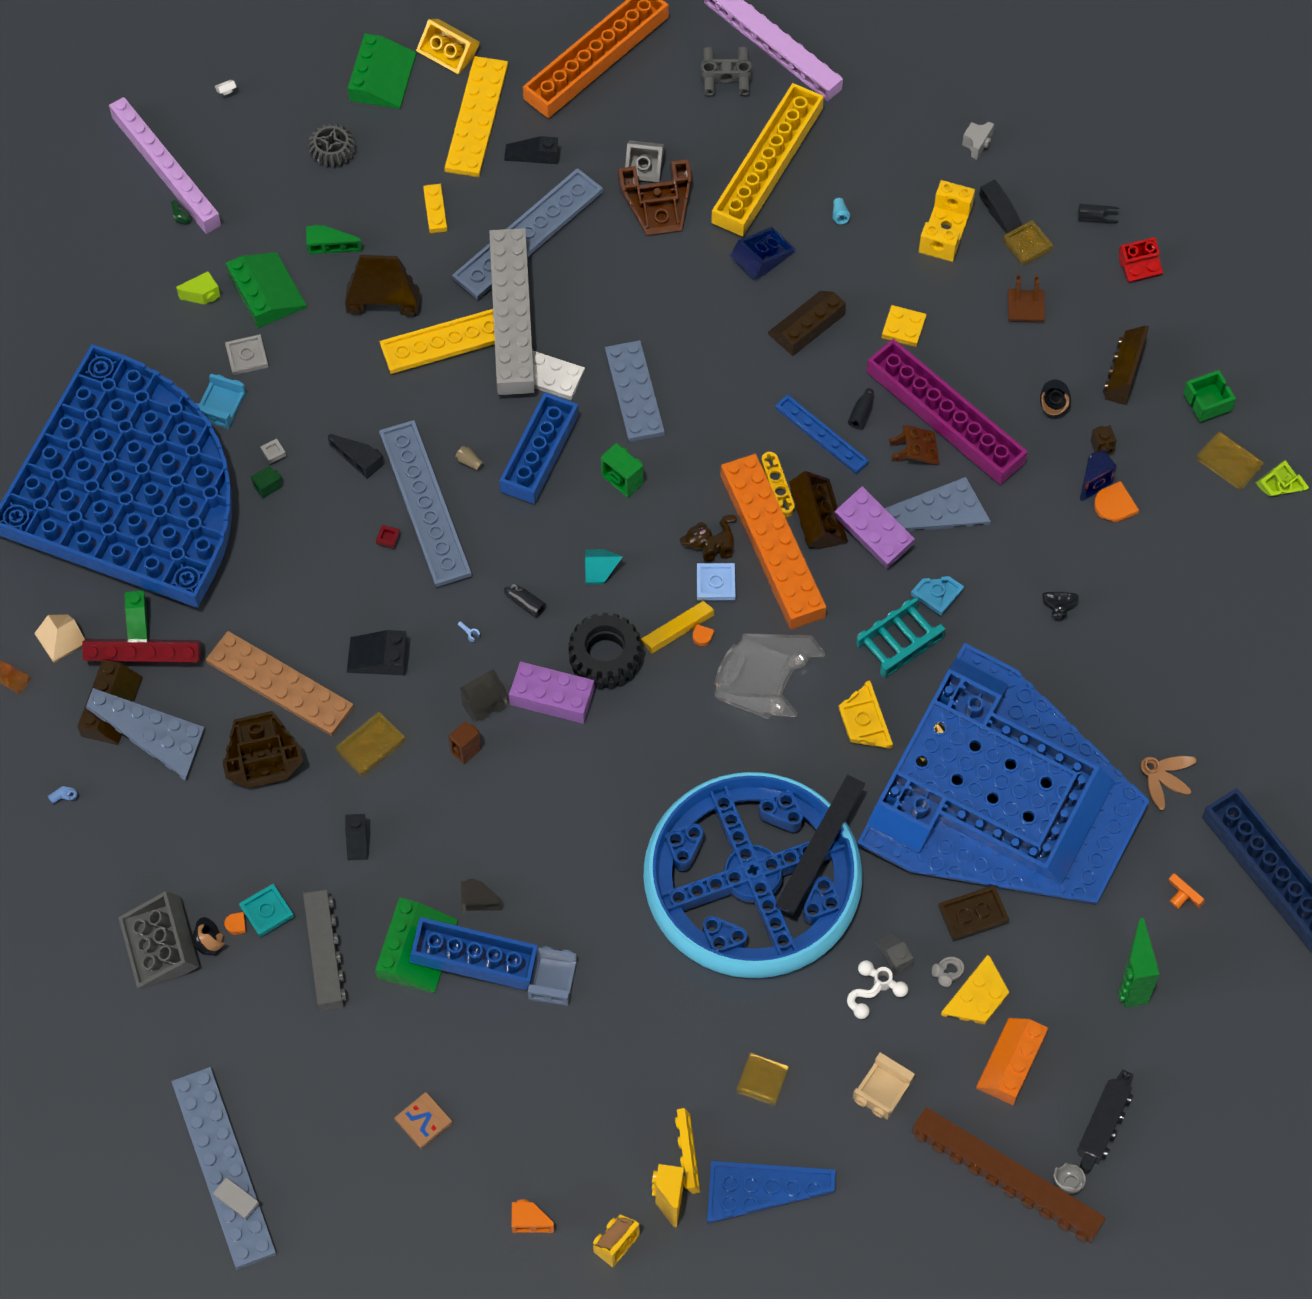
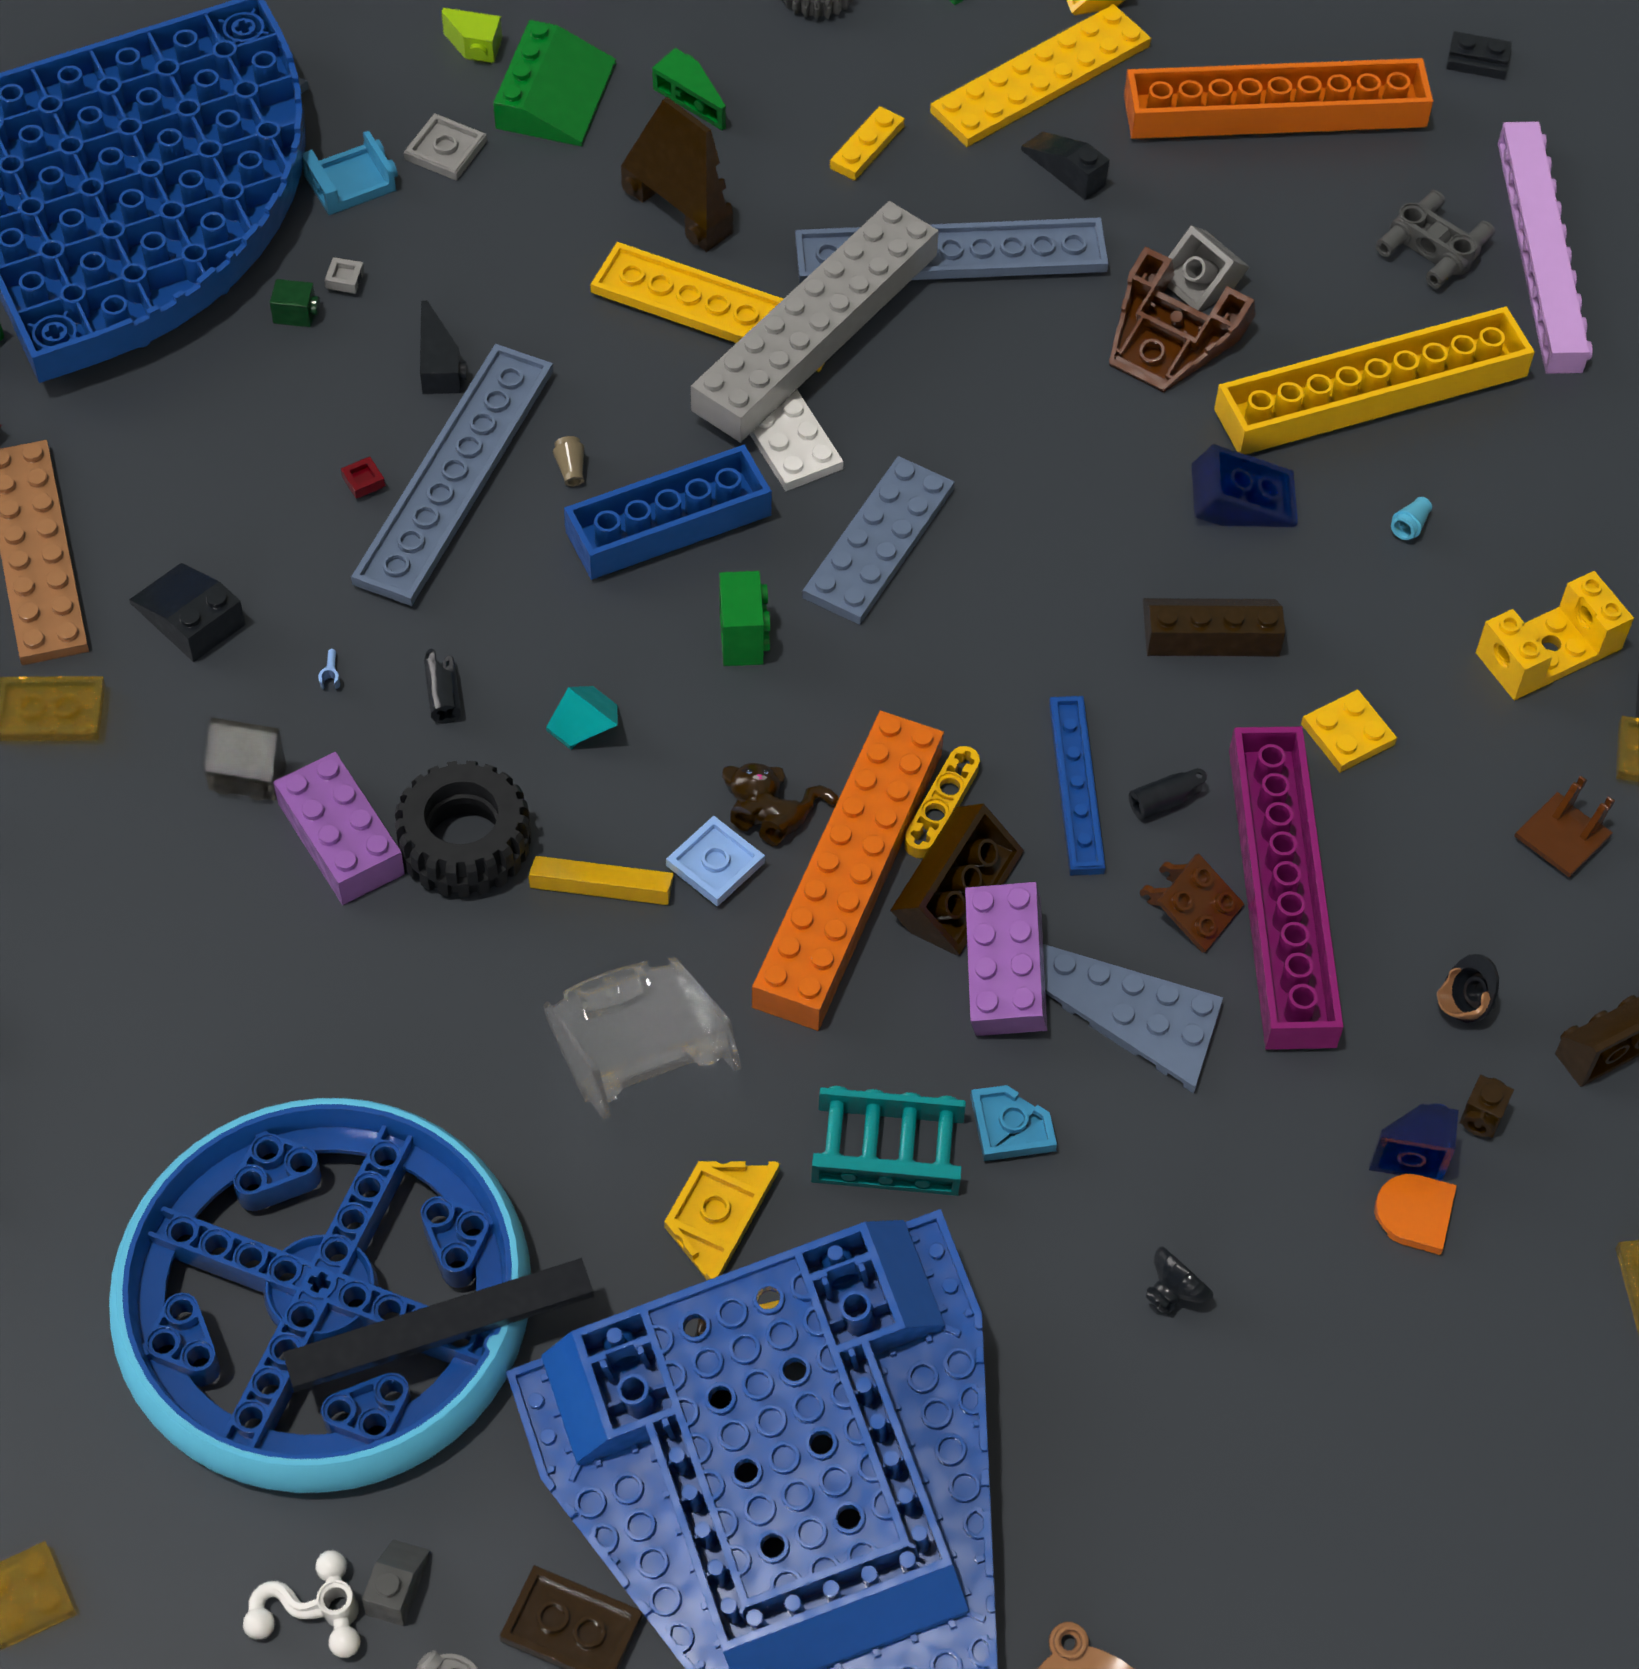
camera: 40 degrees right, 5 degrees down
(464, 742) = (153, 797): reddish brown brick -> none
(702, 635) = (621, 917): orange tile -> none

